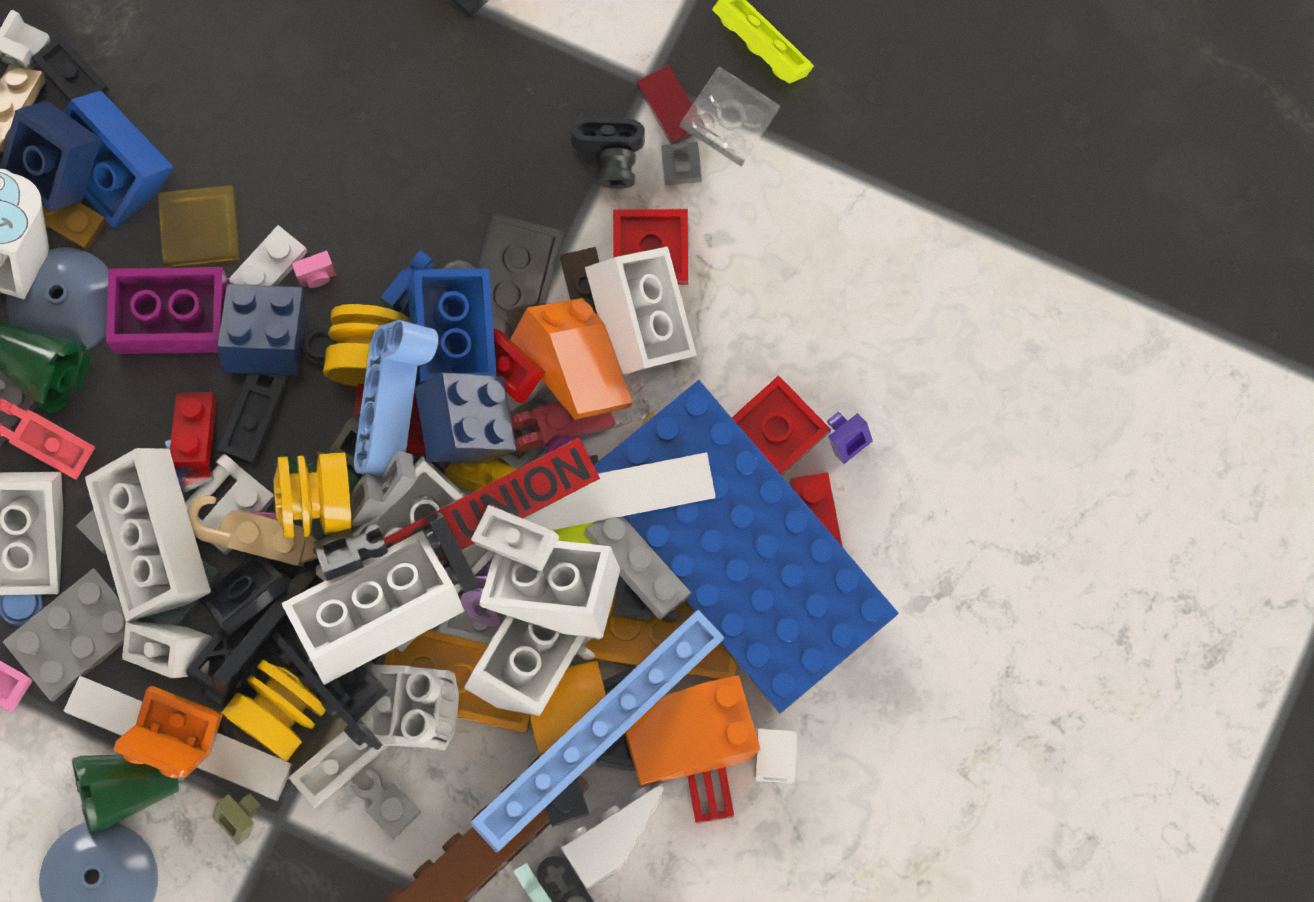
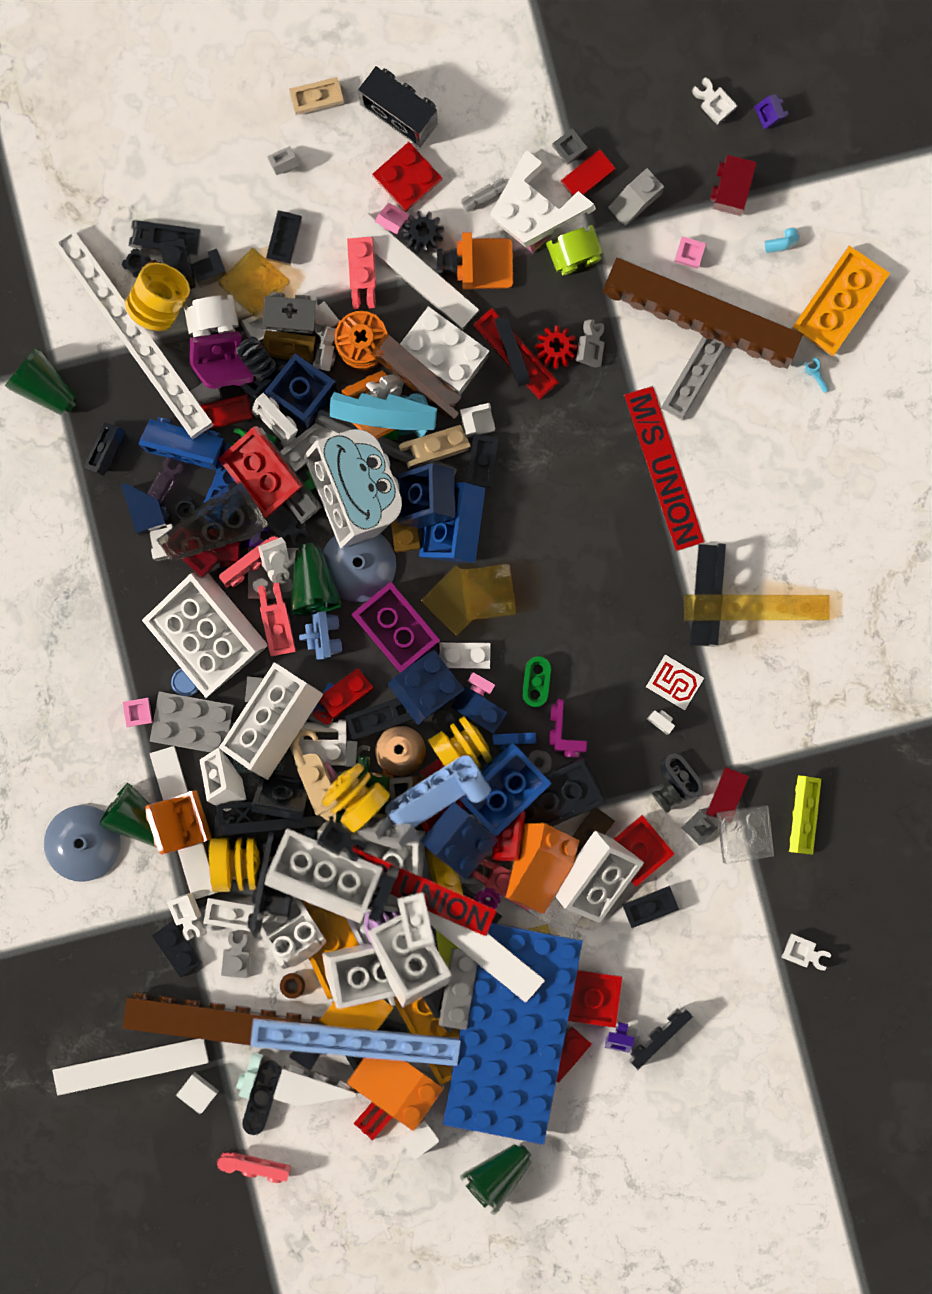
camera: 50 degrees right, 10 degrees up
(101, 406) = (318, 637): none -> medium blue hips
(218, 178) = (488, 592): none -> clear yellow slope
(236, 818) = (166, 888): olive tile -> none
(265, 471) = (353, 753): none -> dark grey tile
(281, 817) = (186, 912): none -> white plate
(309, 419) = (409, 760): none -> light nougat cone
(317, 866) = (177, 949): none -> black plate
(341, 287) = (479, 710): none -> dark blue slope
(367, 209) = (536, 681): none -> green plate
(456, 232) = (570, 748): none -> magenta bracket
(472, 751) = (292, 994): none -> reddish brown plate
(497, 65) = (674, 682): none -> white sticker
(527, 108) = (661, 721): none -> white plate
(725, 284) = (650, 907): none -> black plate
(882, 389) = (659, 1037): none -> black plate
(894, 702) = (497, 1176): none -> dark green cone
(914, 161) = (802, 951): none -> white plate

